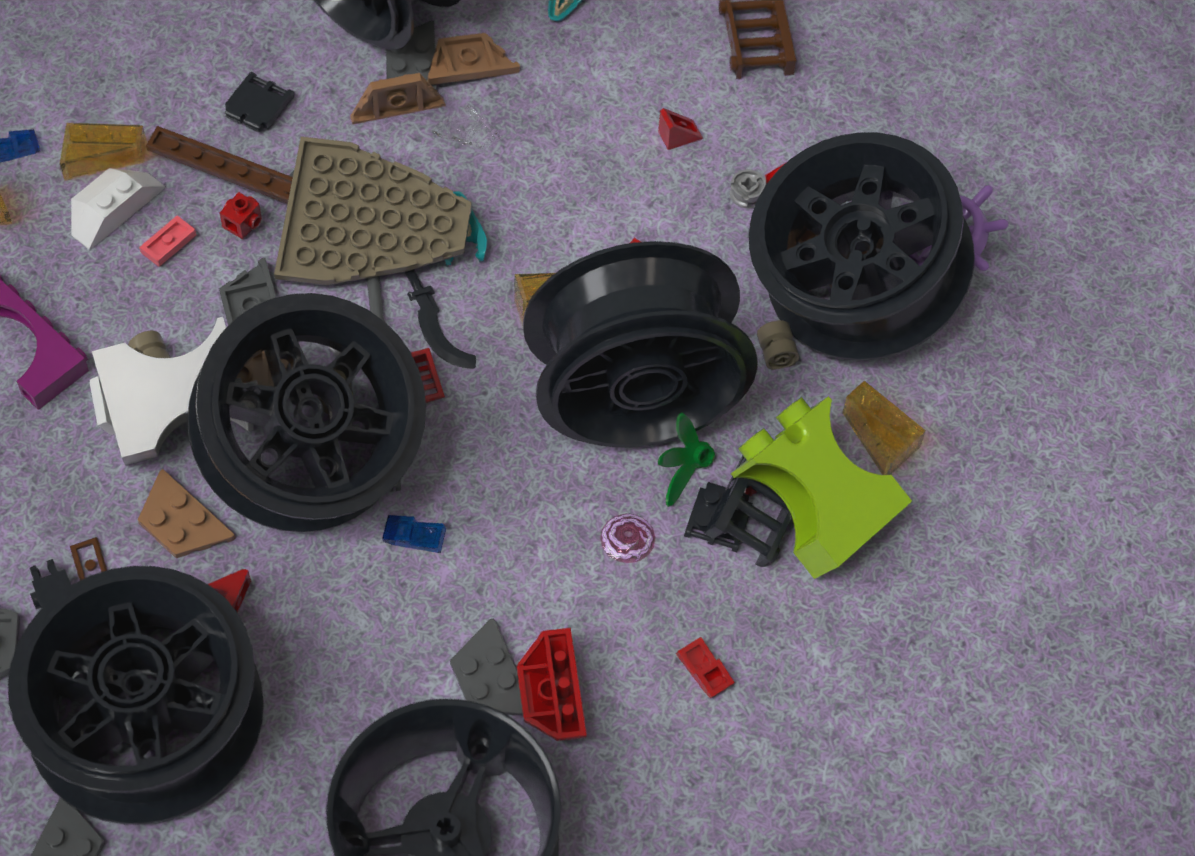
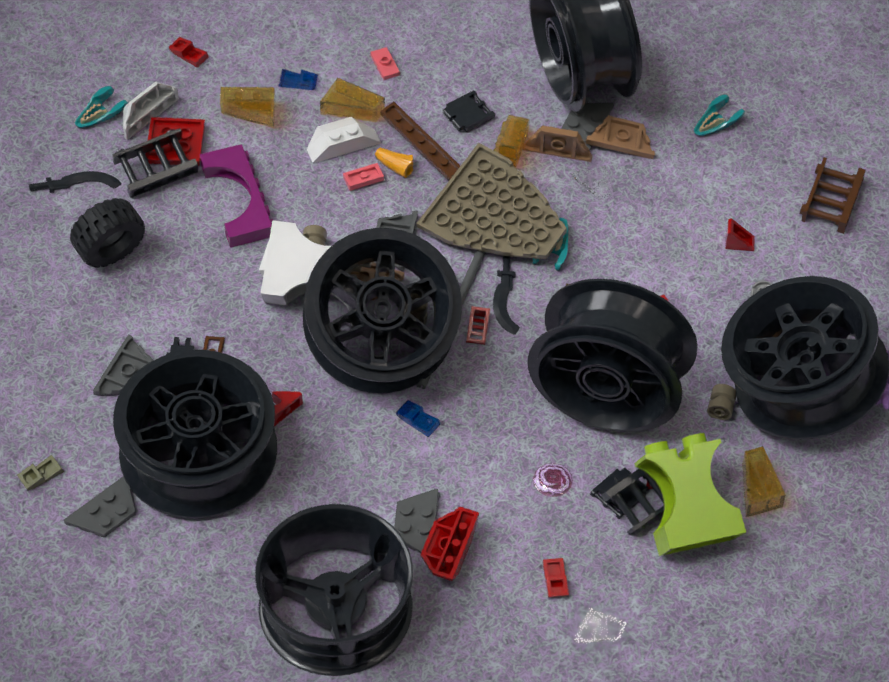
camera: 30 degrees right, 5 degrees down
(115, 81) = (385, 63): none -> coral plate
(179, 519) = (279, 348): medium nougat wing -> none
(198, 204) = (399, 163): none -> light orange piece
(240, 215) = (417, 178): red brick -> none
(334, 112) = (512, 138): none -> clear yellow wedge
(693, 456) = (618, 445): green plant -> none
(808, 707) = (608, 631): none -> clear slope

